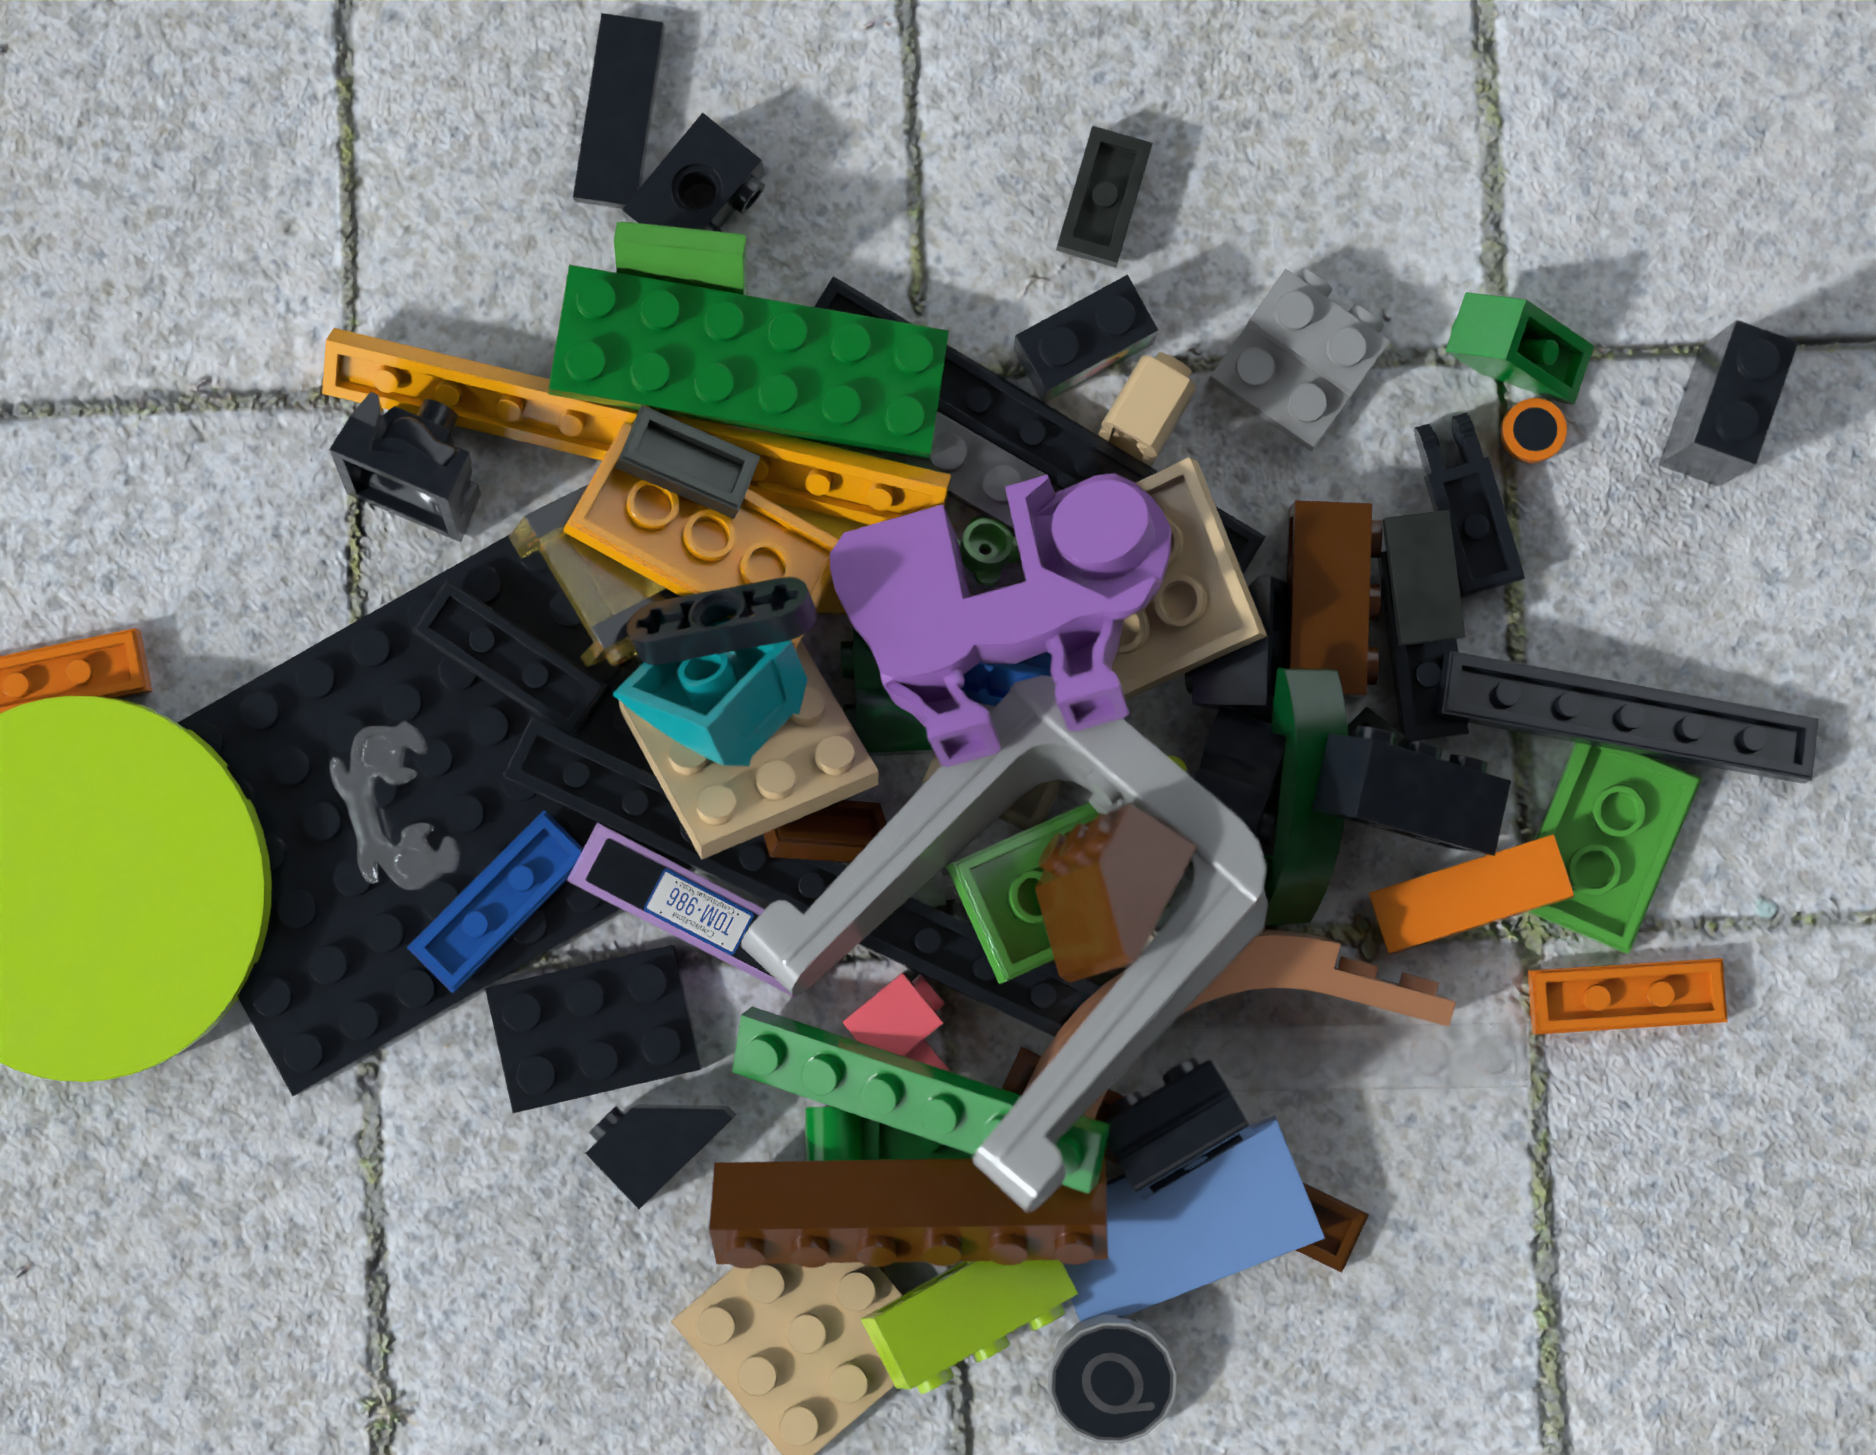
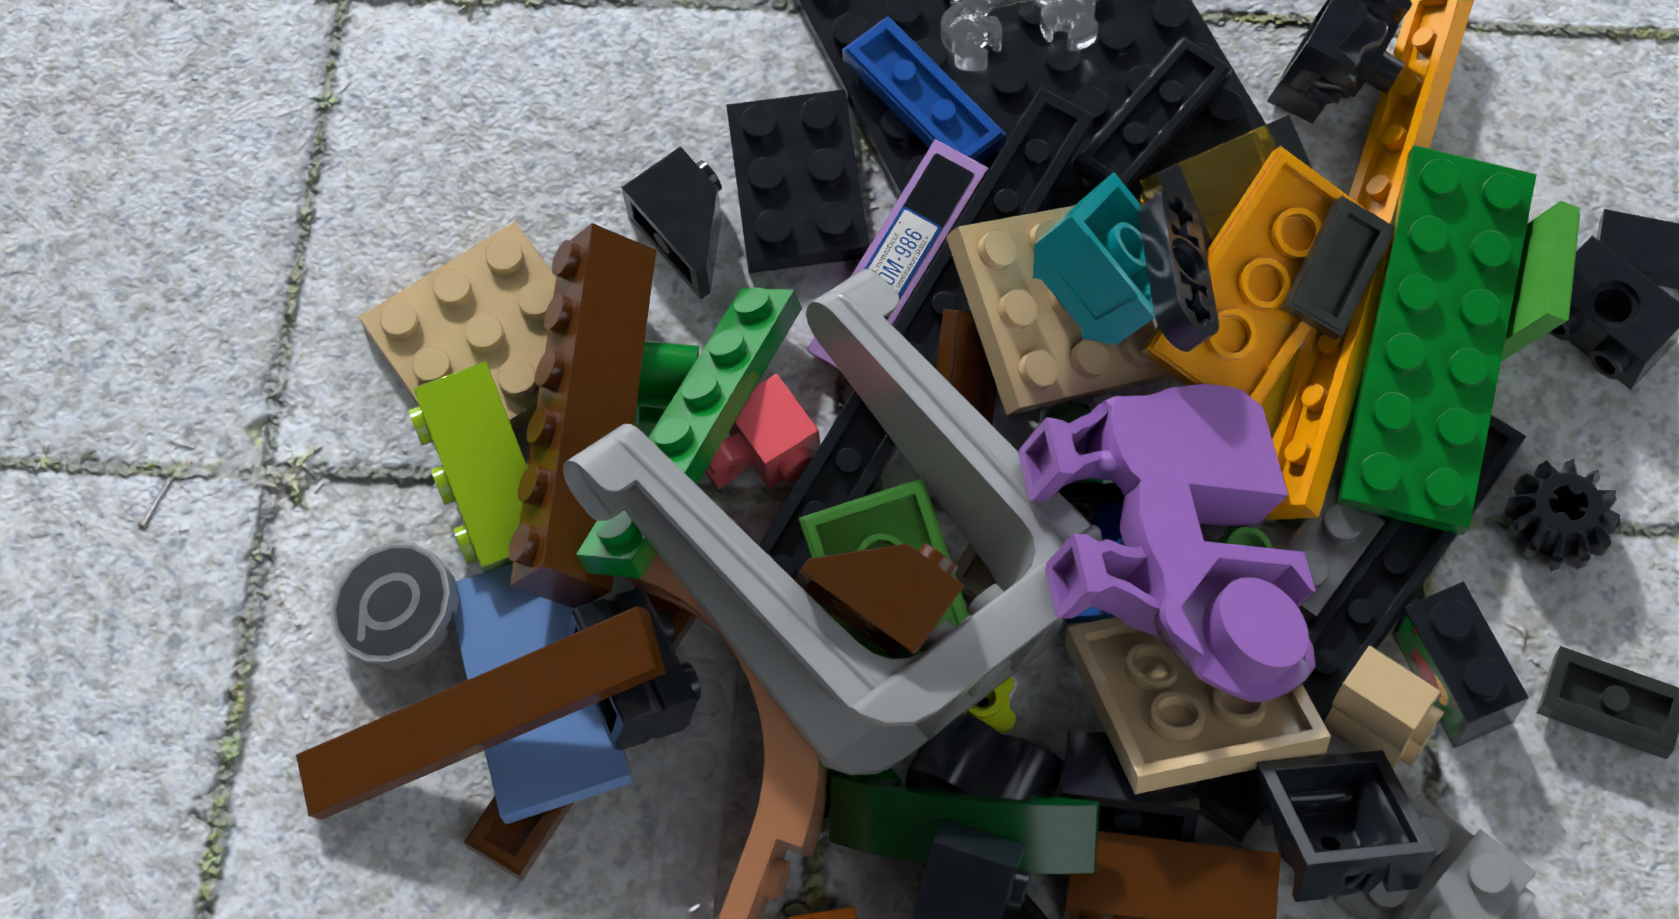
camera: 100 degrees right, 20 degrees down
(943, 245) = (1569, 497): none -> black gear
(1238, 1269) = (480, 713): none -> reddish brown tile
(1266, 444) = (1342, 824): none -> black brick

